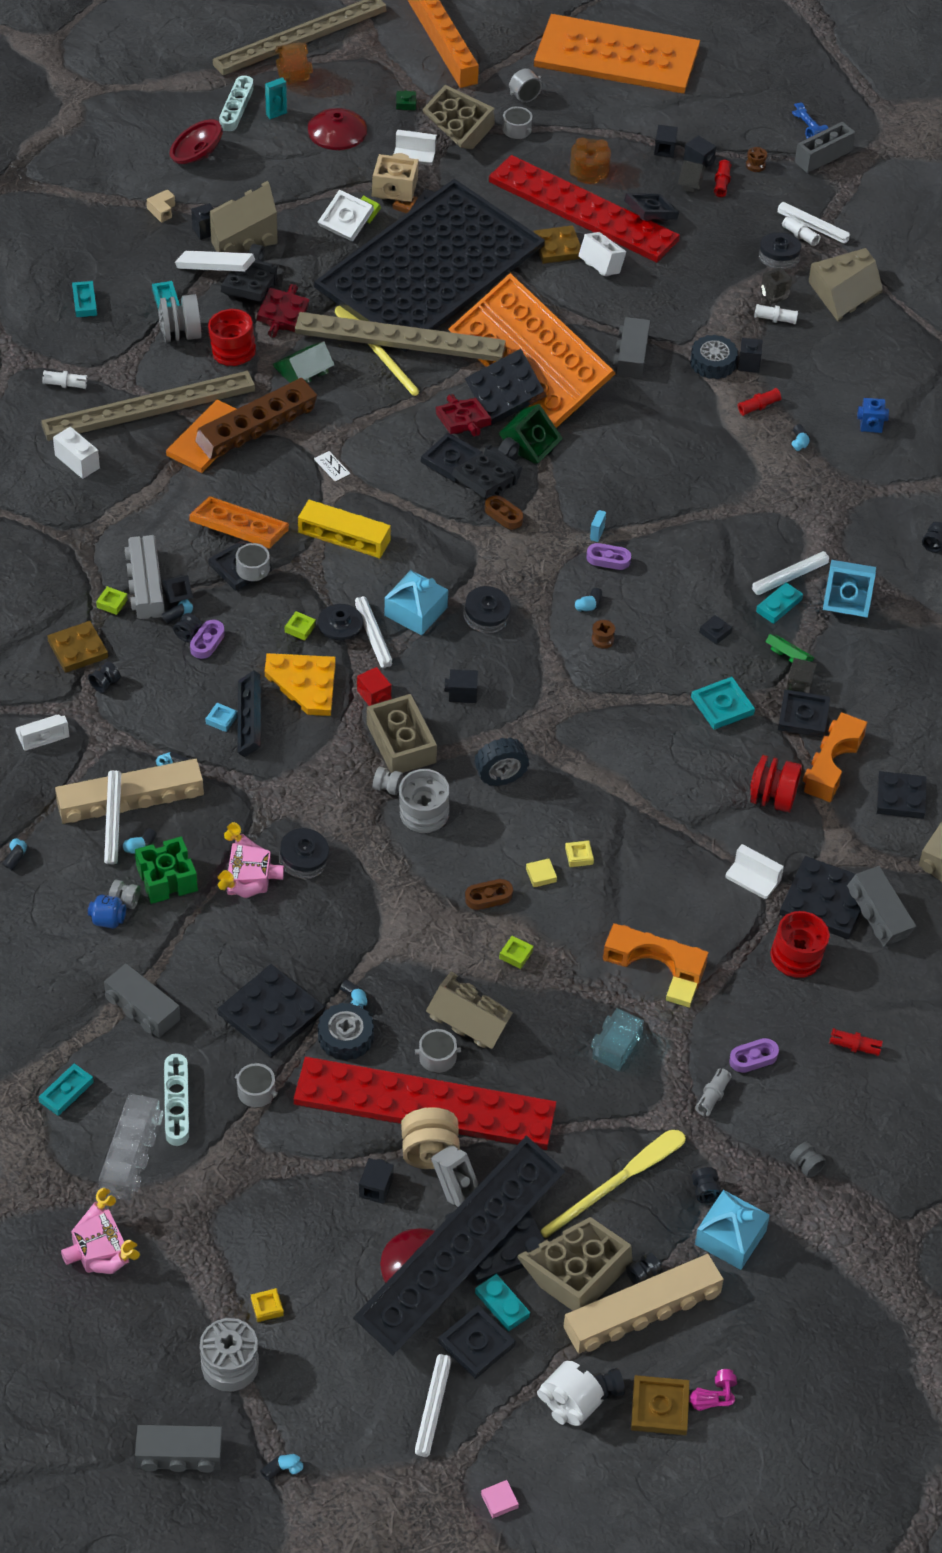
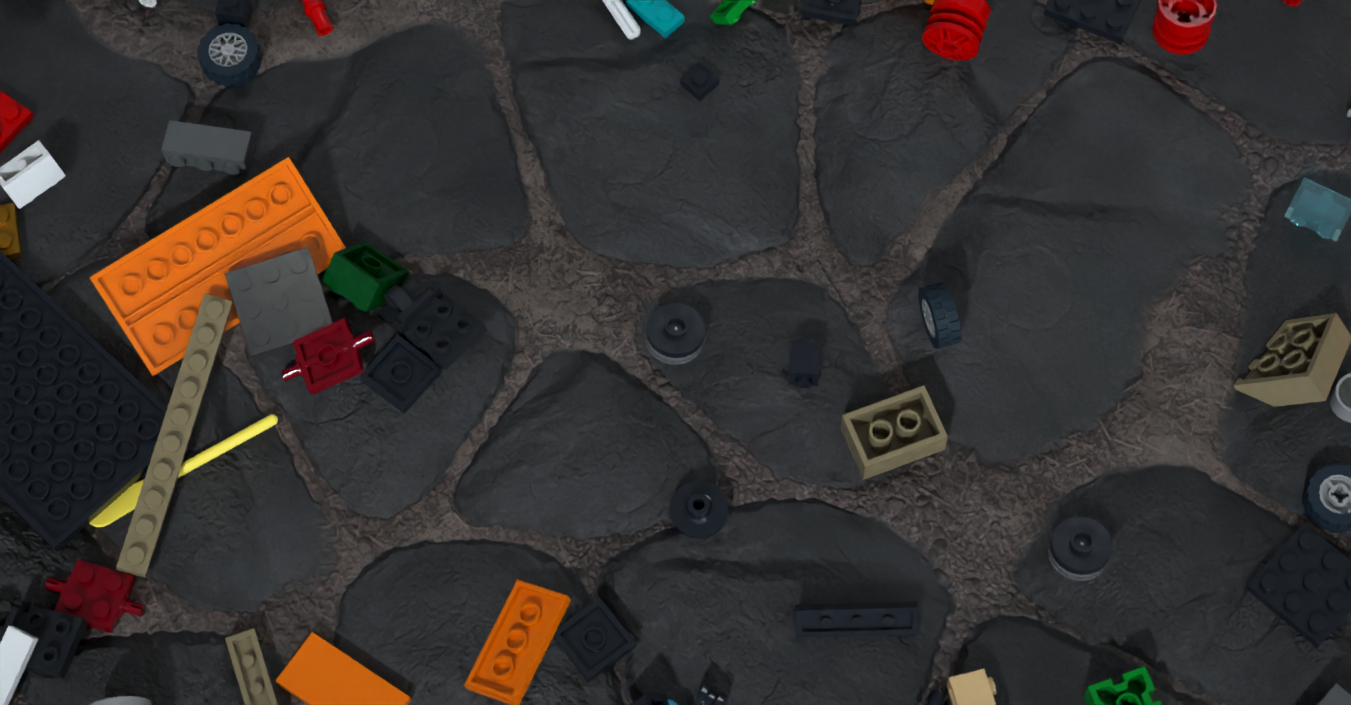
camera: 85 degrees left, 15 degrees up
(204, 643) = (729, 676): medium lavender plate -> none
(221, 717) = (856, 657): medium azure tile -> none
(232, 337) = (148, 655): red wheel -> none
(248, 866) = (1112, 612): bright pink torso -> none
(252, 562) = (606, 616): piece -> none
(256, 418) = (364, 681): reddish brown brick -> none
(300, 625) = (703, 560): lime plate -> none
(304, 679) = (791, 555): light orange plate -> none
(305, 363) = (211, 563): slope -> none
(332, 466) = (403, 528): white sticker -> none
(344, 528) = (531, 506): yellow brick -> none
(356, 992) = (1282, 485): arm -> none
(373, 632) = (709, 471): white axle -> none
(373, 687) = (810, 467): red brick -> none
(387, 781) = (960, 452): light grey wheel -> none
(416, 602) = (666, 415): medium azure piece -> none
(424, 800) = (1010, 392): light grey wheel -> none
(487, 894) = (1124, 342): reddish brown plate -> none
(504, 512) = (500, 311): reddish brown plate -> none
(516, 952) = (1206, 312): lime plate -> none
(541, 873) = (1084, 284): light yellow tile -> none
(579, 853) = (1052, 243): light yellow tile -> none
(590, 602) = (657, 214): medium azure arm -> none
(598, 526) = (532, 201): medium azure tile -> none
(603, 634) = (710, 209): reddish brown wheel -> none
(608, 556) = (582, 194): medium lavender plate -> none
(628, 945) = (1192, 193): orange arch -> none
(681, 991) = (1242, 145): light yellow tile -> none
(722, 703) = (820, 78): teal plate -> none
(752, 1055) = (1326, 78): medium lavender plate -> none
(755, 872) = (1071, 62): white panel -> none

